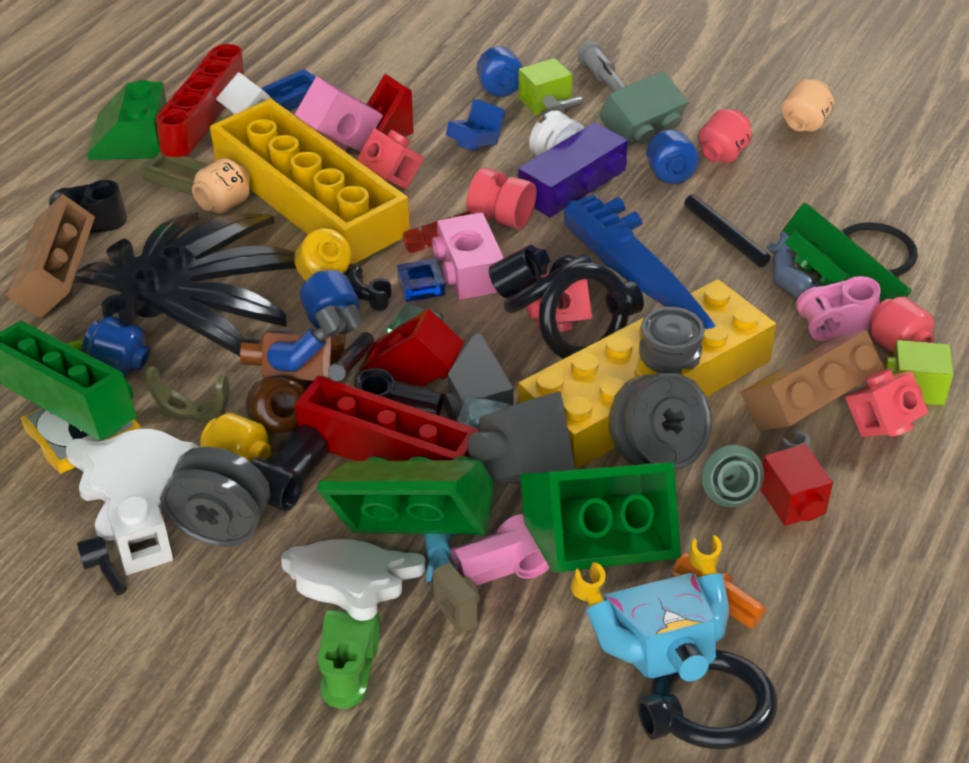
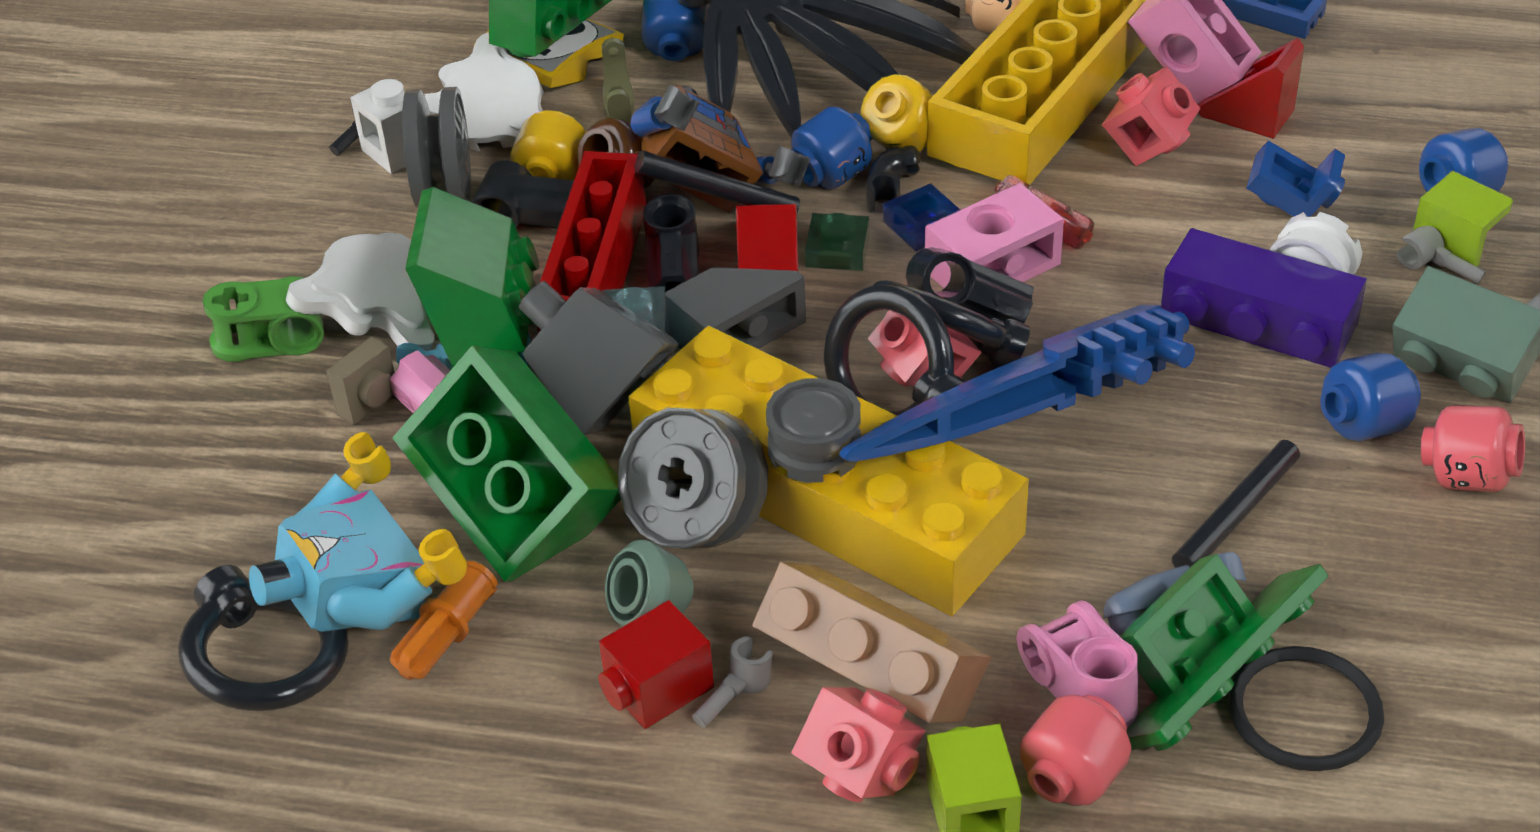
camera: 75 degrees right, 0 degrees up
(506, 199) = (1131, 239): coral wheel -> none

